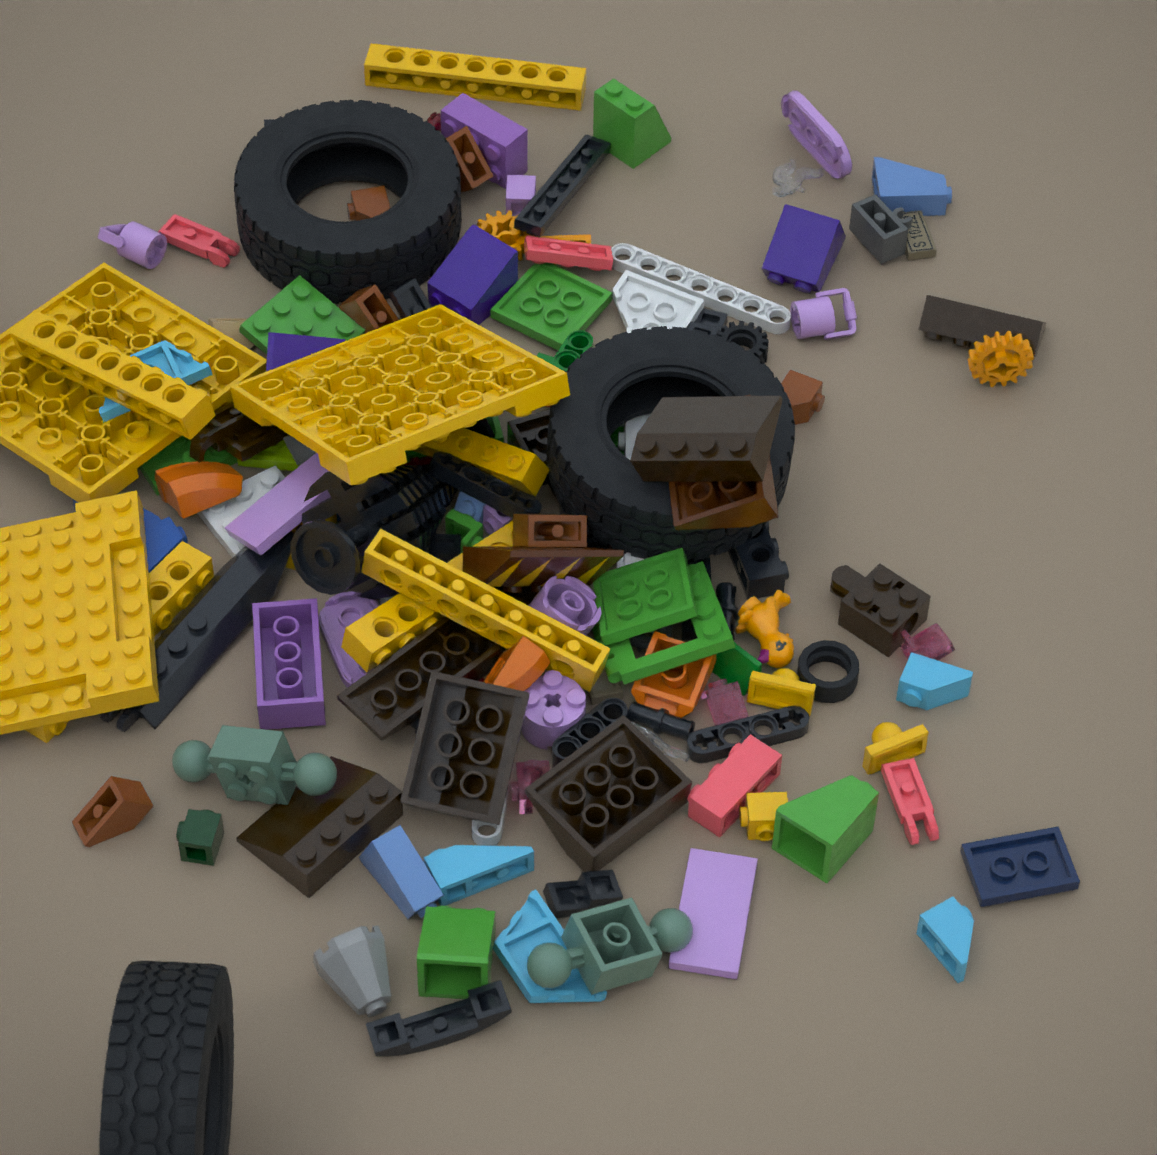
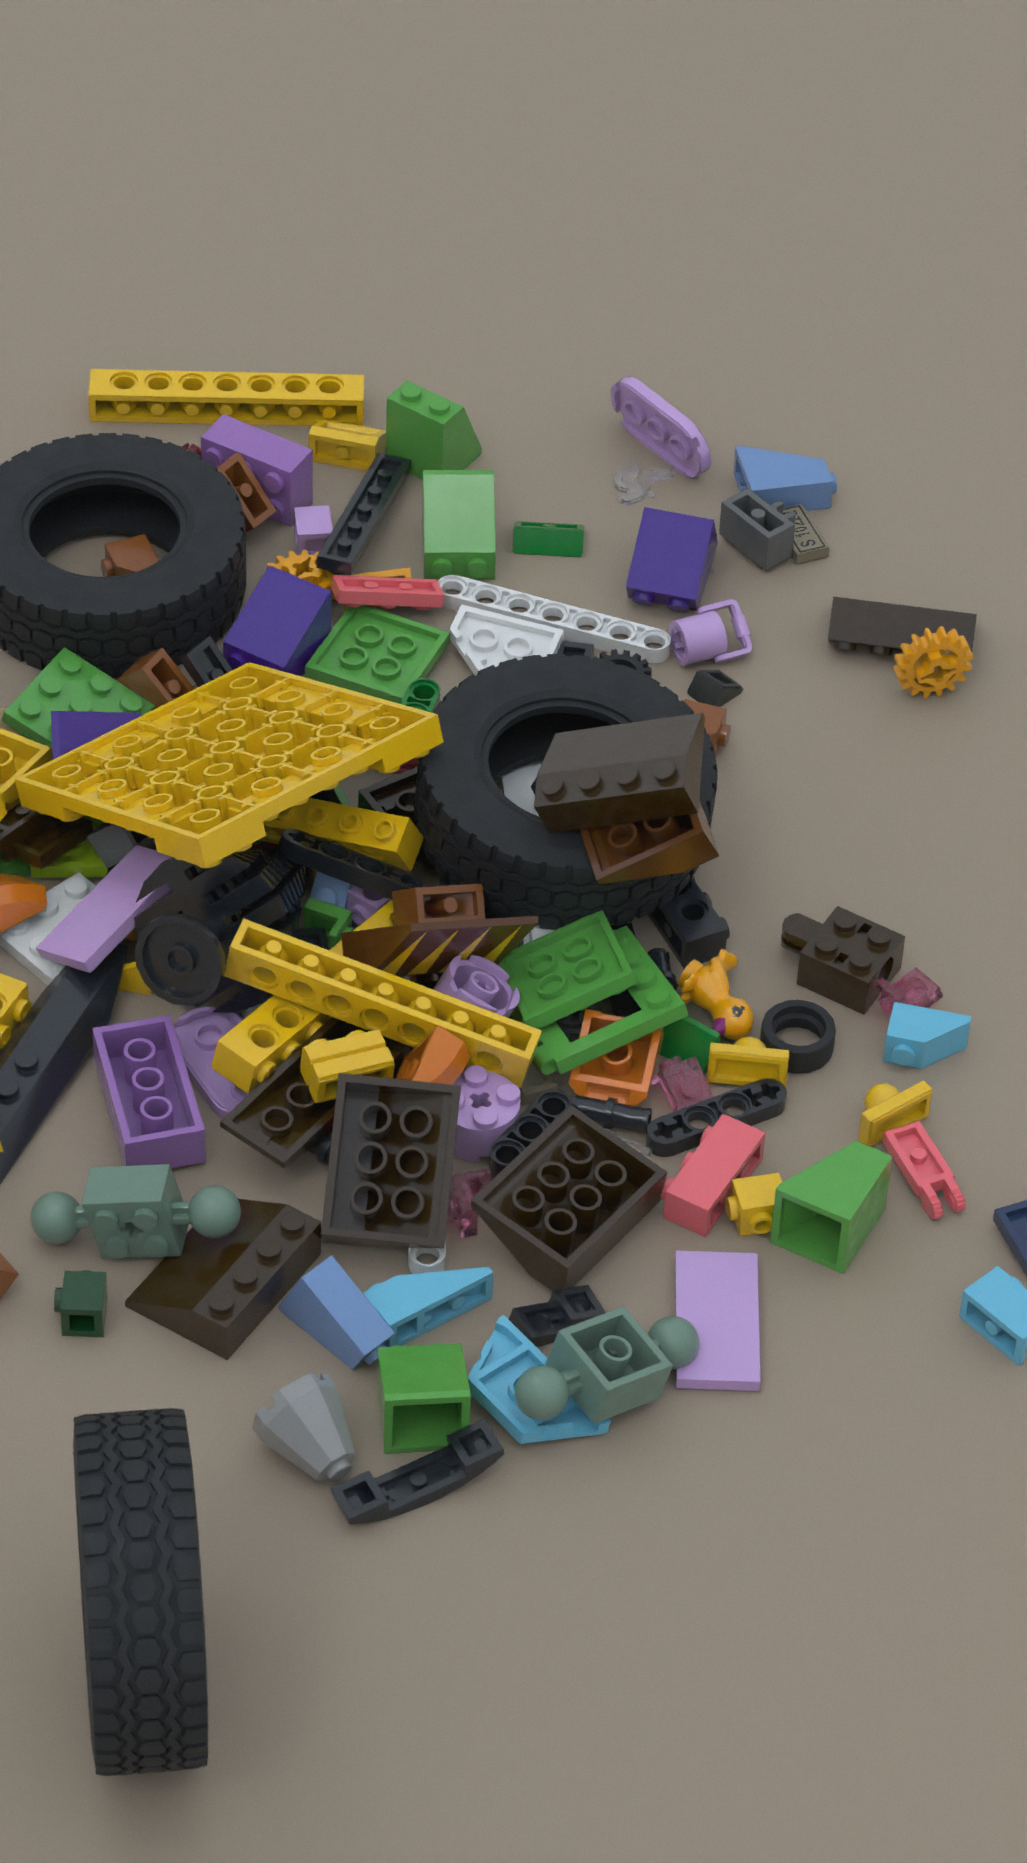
camera: 10 degrees left, 5 degrees down
(451, 655) = (355, 1054): none -> yellow brick
(561, 123) = (345, 444): none -> yellow tile
(636, 201) = (458, 524): none -> bright green slope
(709, 219) = (548, 539): none -> green slope
(818, 361) = (713, 687): none -> pearl dark grey slope

